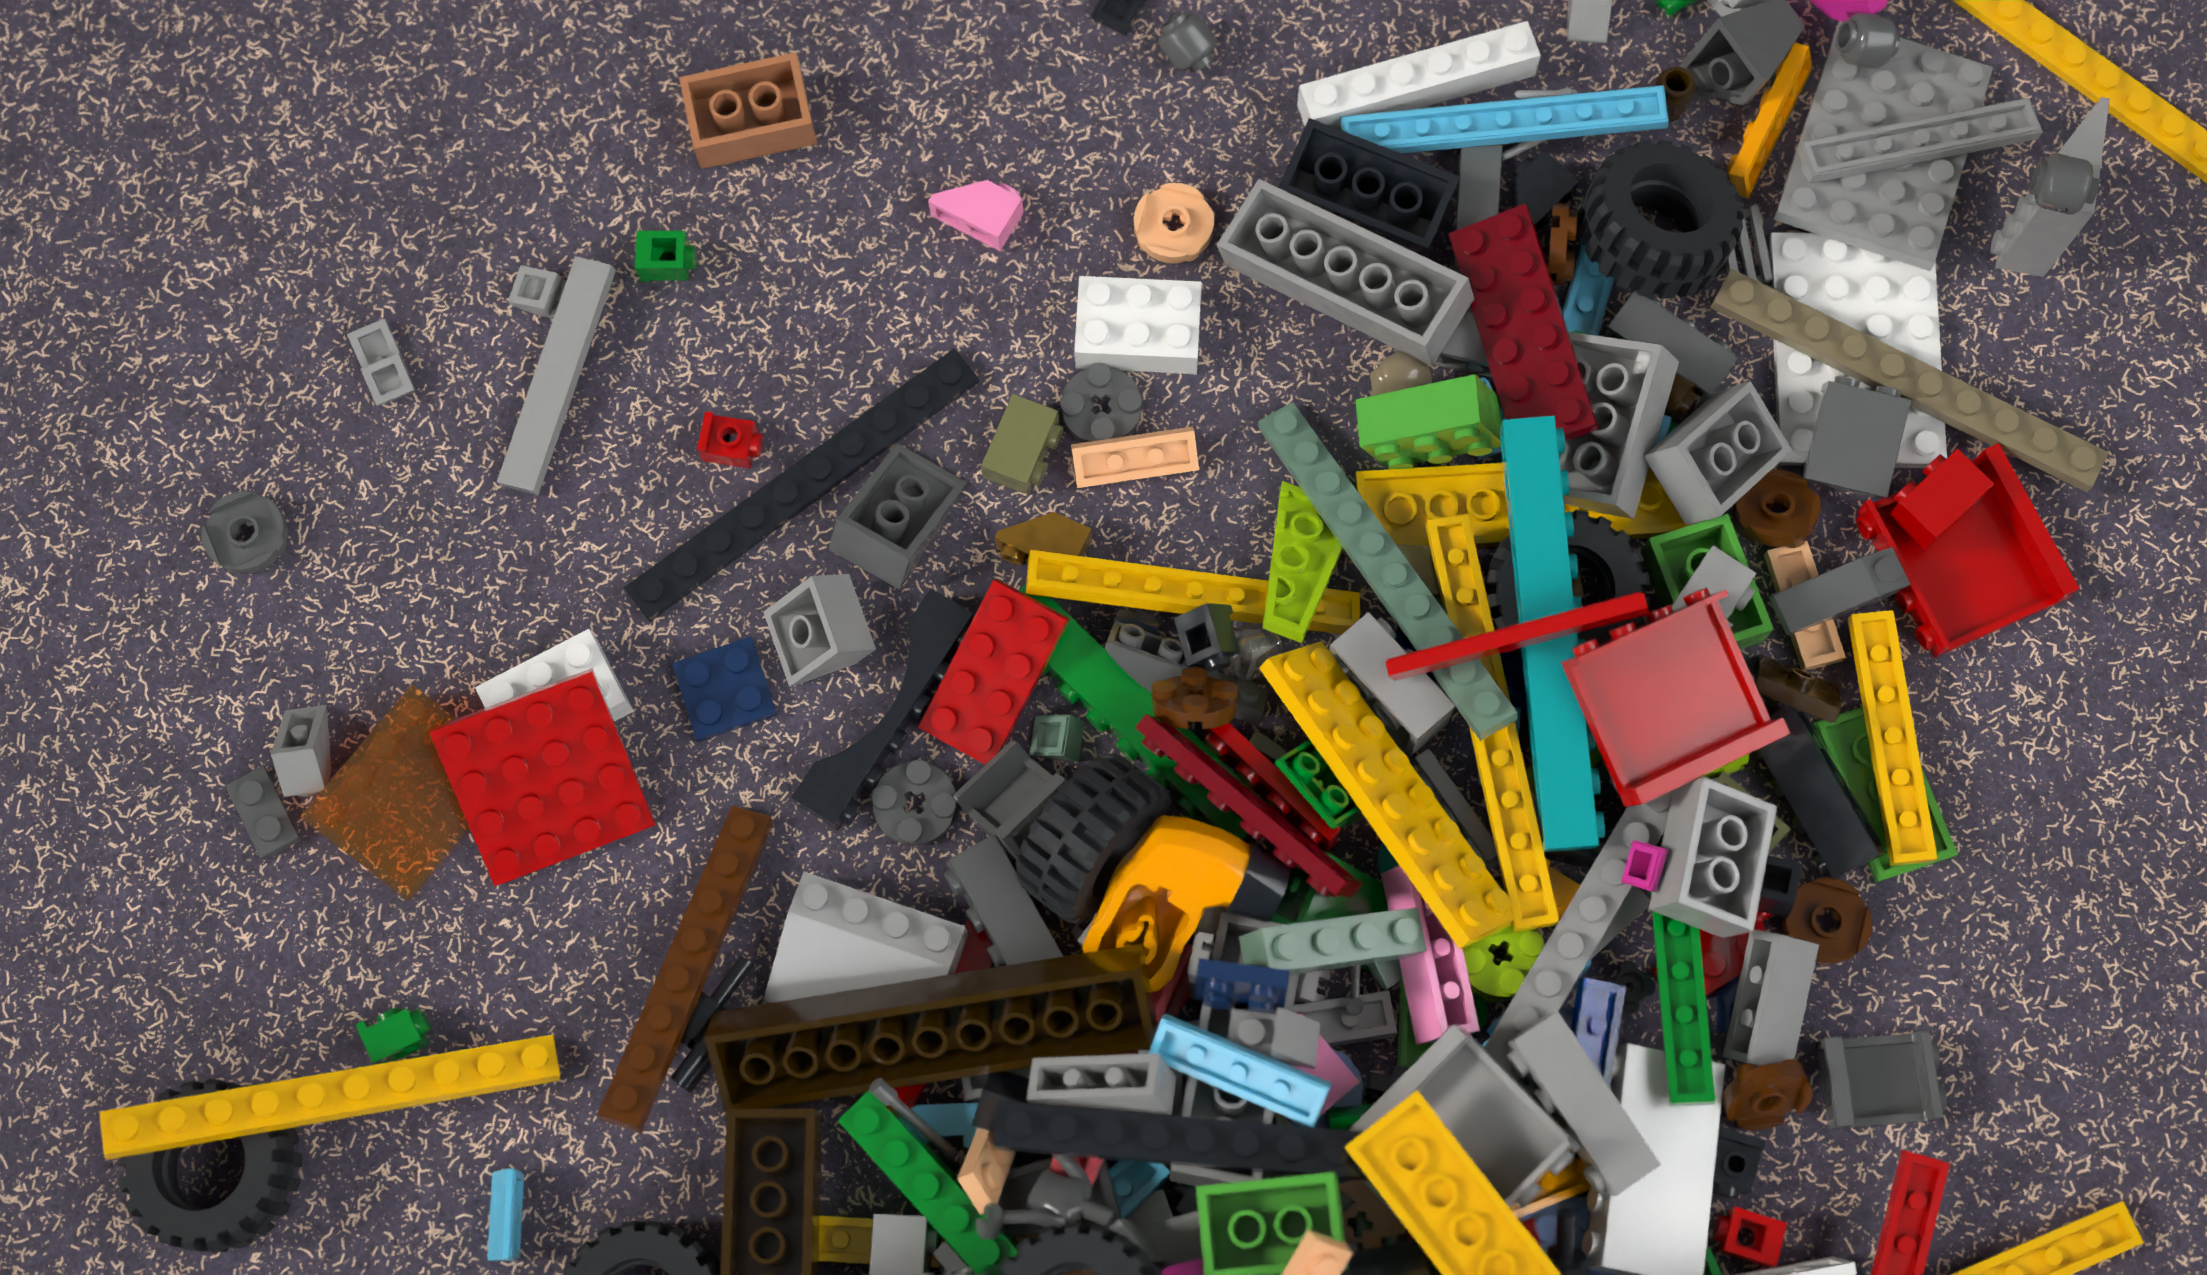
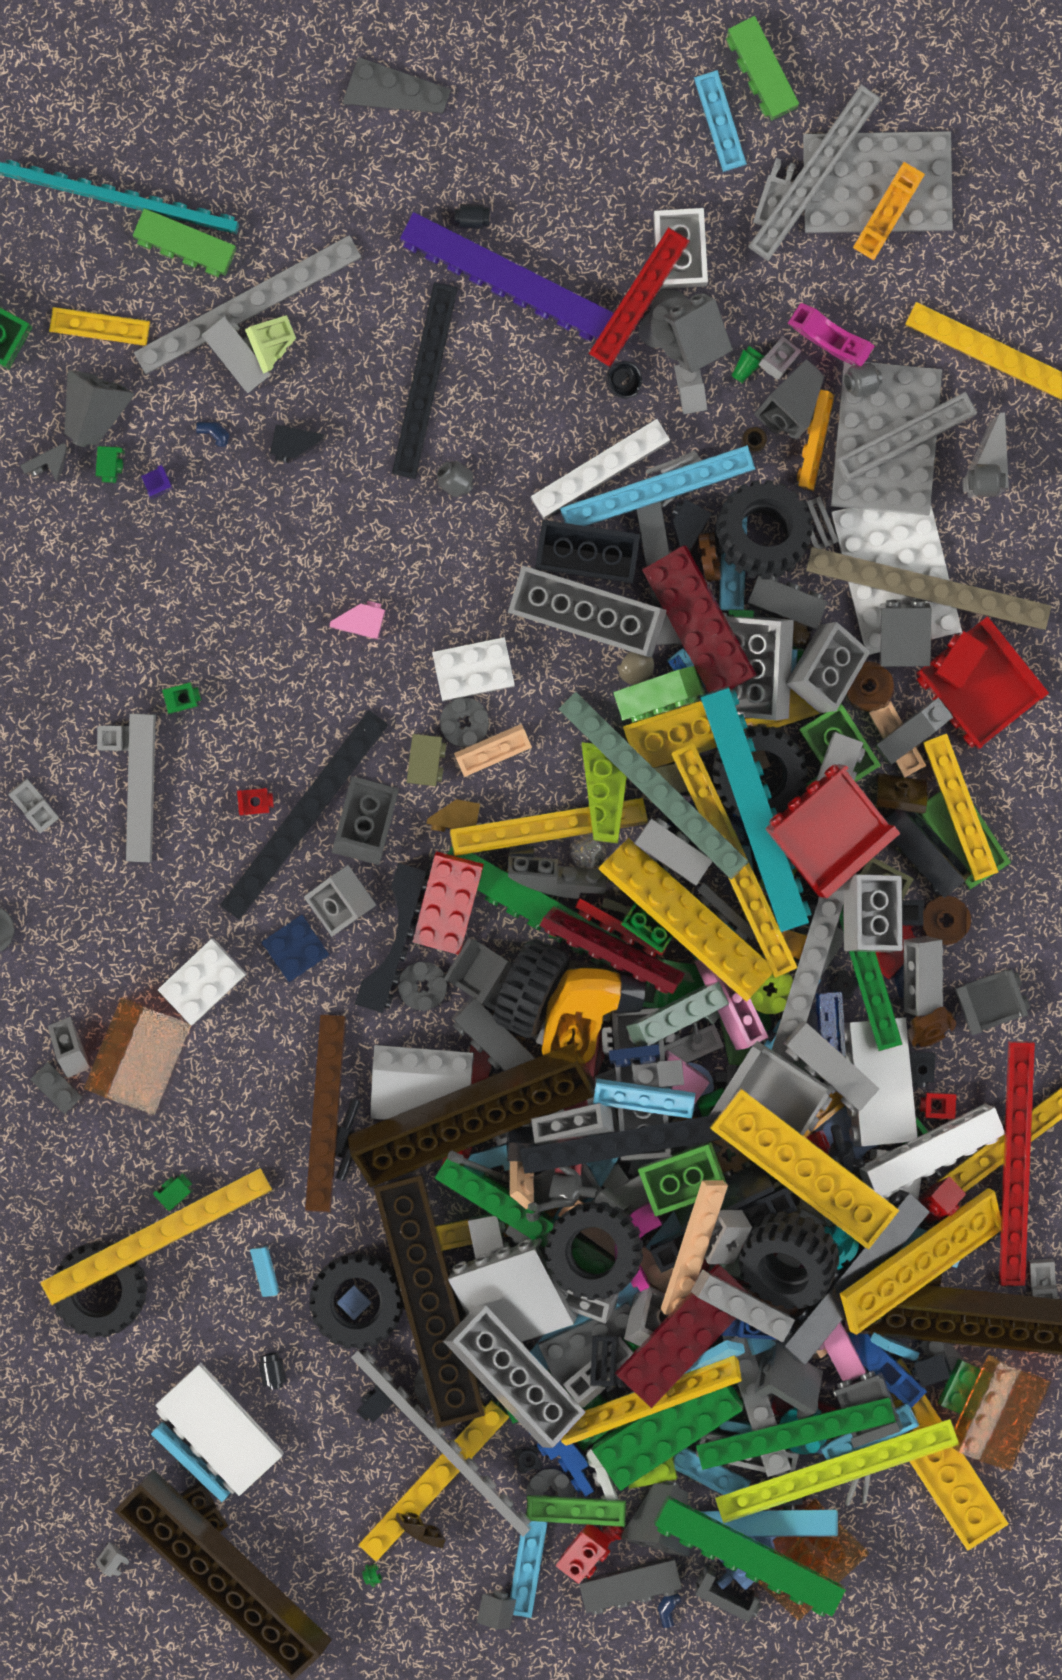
camera: 20 degrees left, 15 degrees up
(542, 777) = (212, 1030): red plate -> none
(747, 110) = (204, 594): nougat brick -> none
(1057, 737) = (492, 926): sand green slope -> none
(1161, 205) = (467, 587): light nougat plate -> none
(1194, 699) = (563, 887): reddish brown plate -> none
(1207, 636) = (564, 854): brick -> none
(1517, 636) = (737, 822): red tile -> none
(1644, 866) = (836, 927): dark pink slope -> none

